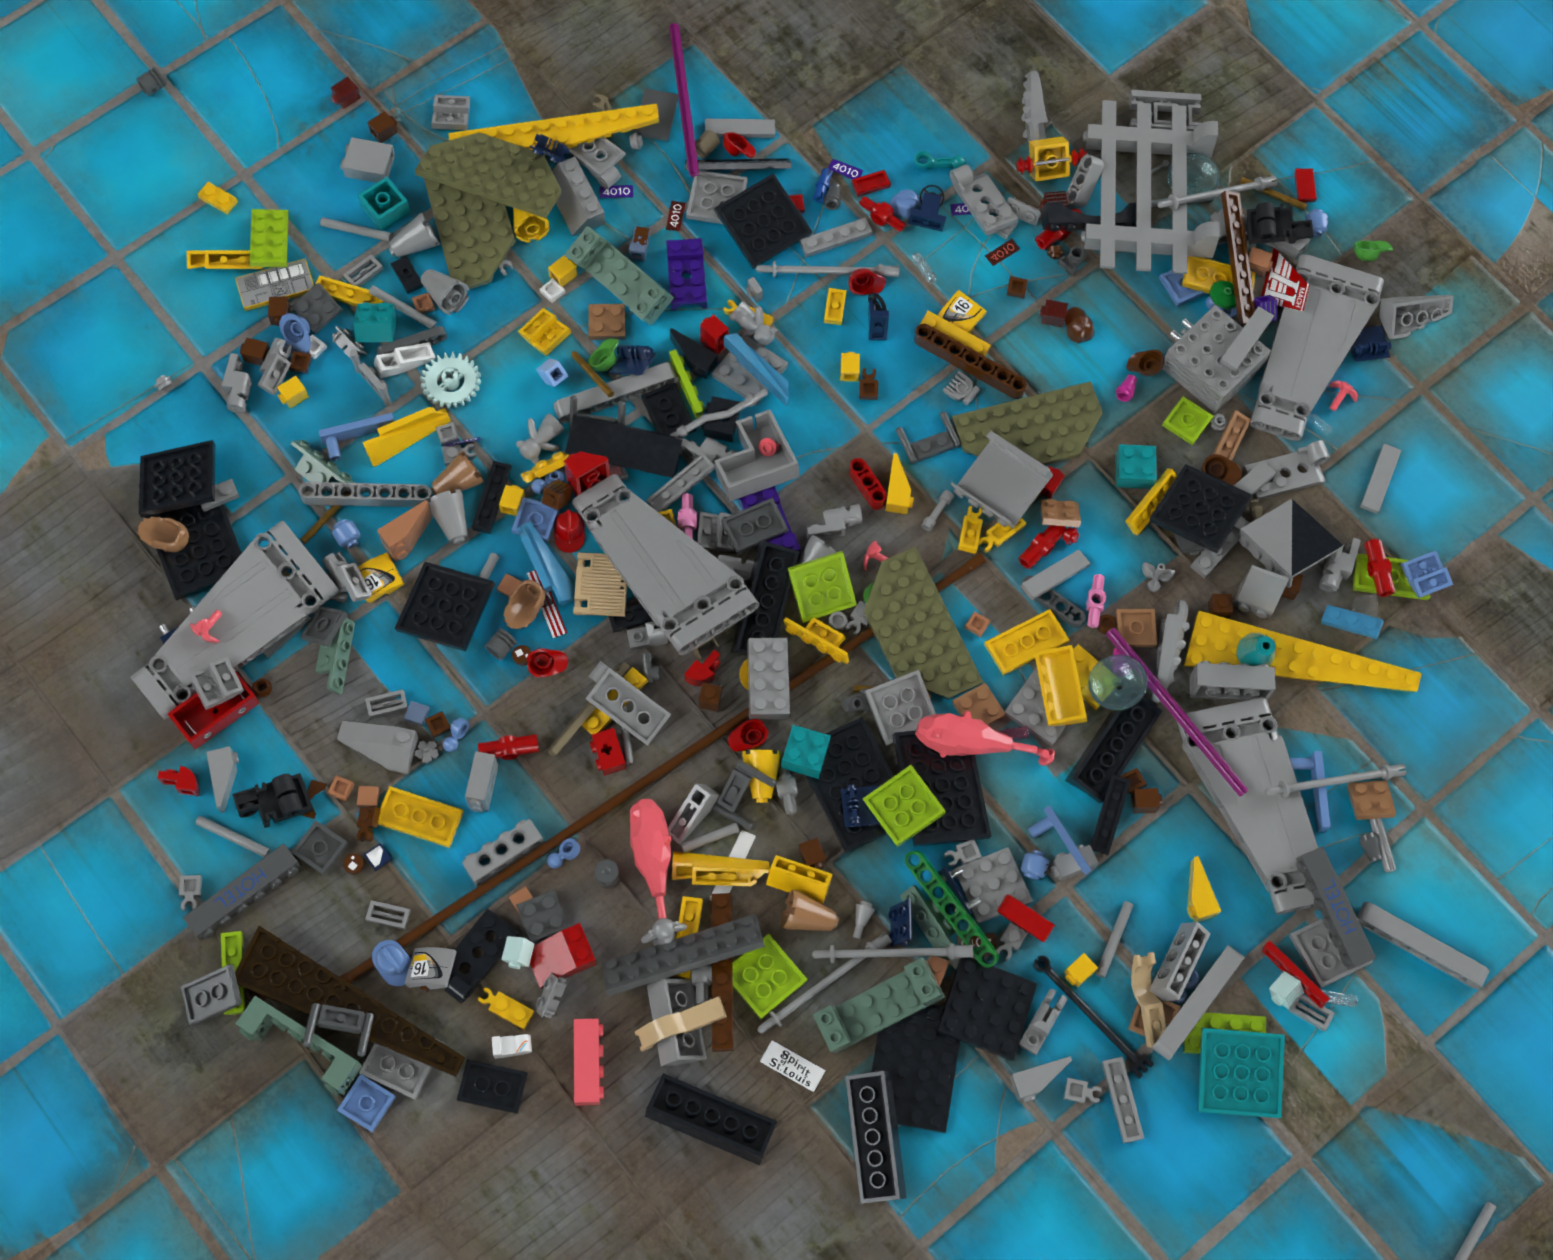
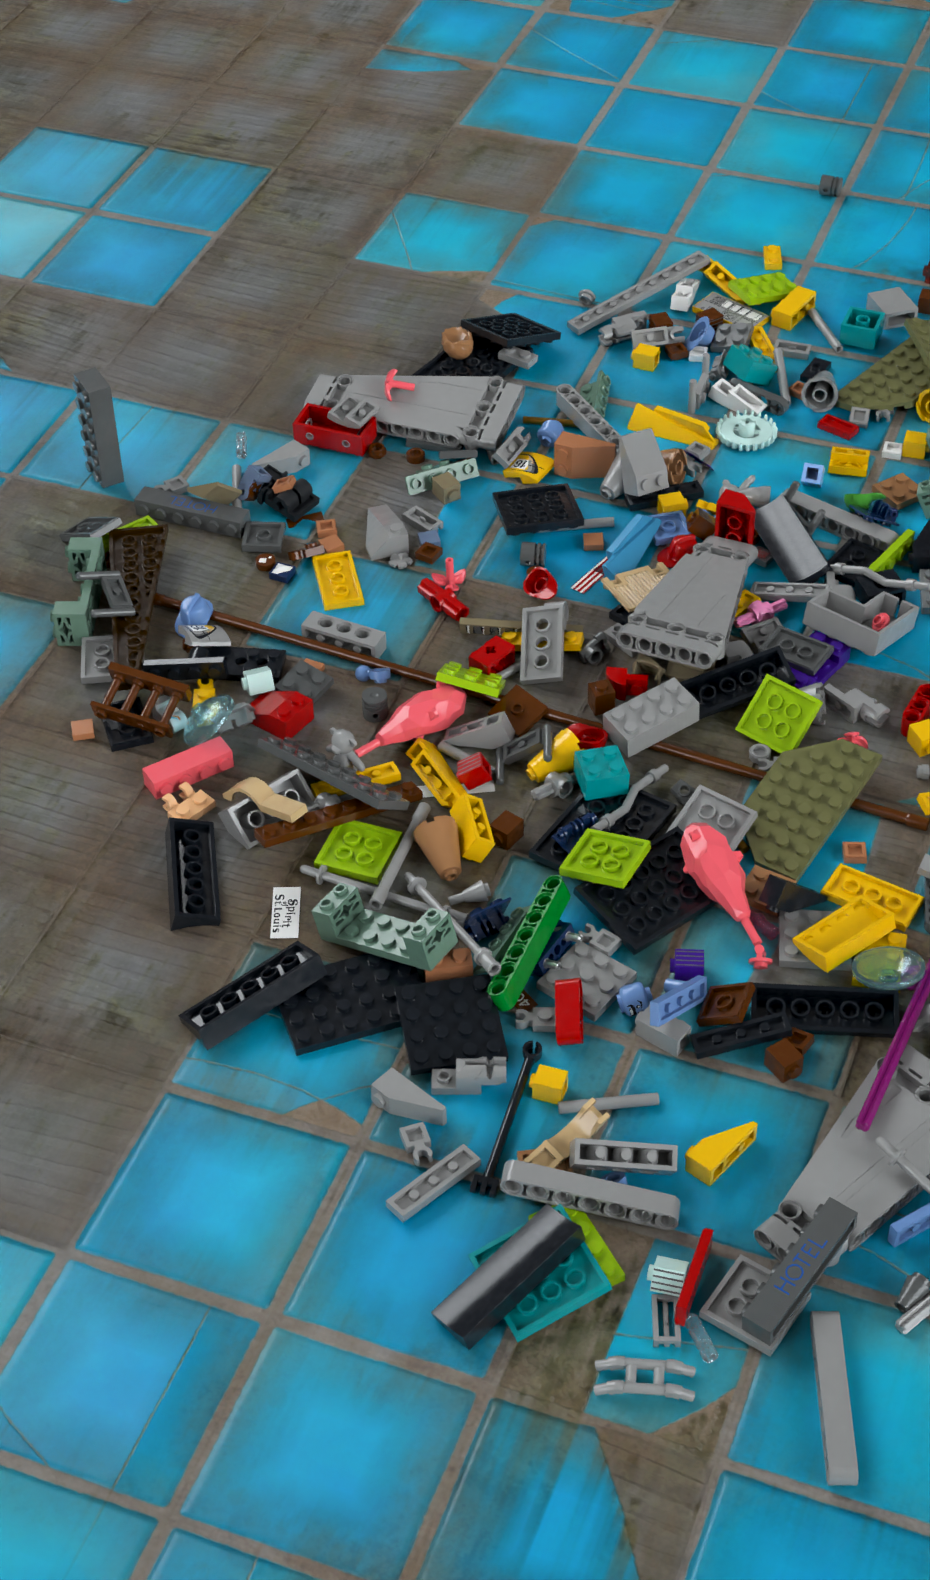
camera: 65 degrees right, 25 degrees down
(103, 925) = (98, 427): none -> dark grey brick
(166, 798) = (241, 445): none -> clear axle
(184, 781) = (261, 442): red brick -> none
(195, 339) = (638, 292): none -> light grey plate
(220, 301) = (684, 294): none -> white slope
(238, 862) = (216, 492): none -> dark tan slope
(248, 821) = (252, 482): none -> sand blue leg
(274, 796) = (284, 484): none -> nougat tile
(290, 658) = (415, 455): none -> reddish brown tile
(309, 233) = (793, 308): none -> yellow brick
(350, 430) = (637, 394): medium blue piece -> none
(361, 661) = (446, 488): none -> dark tan brick
(366, 1103) = (58, 655): medium blue plate -> none
(385, 922) = (238, 609): light grey tile -> none
(413, 238) = (851, 355): light grey cone -> none
(458, 730) = (418, 567): medium blue plate -> none
(460, 1013) = (187, 668): none -> black plate
(466, 496) = (642, 463): none -> light grey slope
(474, 1056) = (141, 680): none -> reddish brown fence
(477, 1126) = (82, 729): none -> nougat tile
(481, 781) = (395, 591): light grey brick -> none
(482, 720) = (451, 577): none -> coral plant
(493, 308) = (838, 427): none -> red tile
(495, 286) = (859, 416): none -> light grey tile
(524, 604) = (585, 550): medium nougat hair -> none
(559, 1016) = (207, 719): none -> clear light blue dish
(592, 374) = (836, 497): pearl gold bar -> none
(633, 1082) = (193, 806): none -> light nougat plate
(638, 786) = (471, 679): none -> lime plate
(686, 769) = (521, 709): none -> reddish brown plate
(736, 842) = (474, 771): none -> red brick
(820, 635) = (728, 742): yellow bracket -> none
(831, 986) = (381, 892): none -> light grey piece
(856, 777) = (651, 777): none -> light grey bar
(1008, 698) = (788, 896): none -> black slope
(1024, 809) = (687, 964): none -> dark purple brick
(1077, 807) = (726, 1004): none -> reddish brown plate
(1238, 1096) = (508, 1276): none -> black arch
(1339, 1055) = (657, 1388): none -> light grey piece

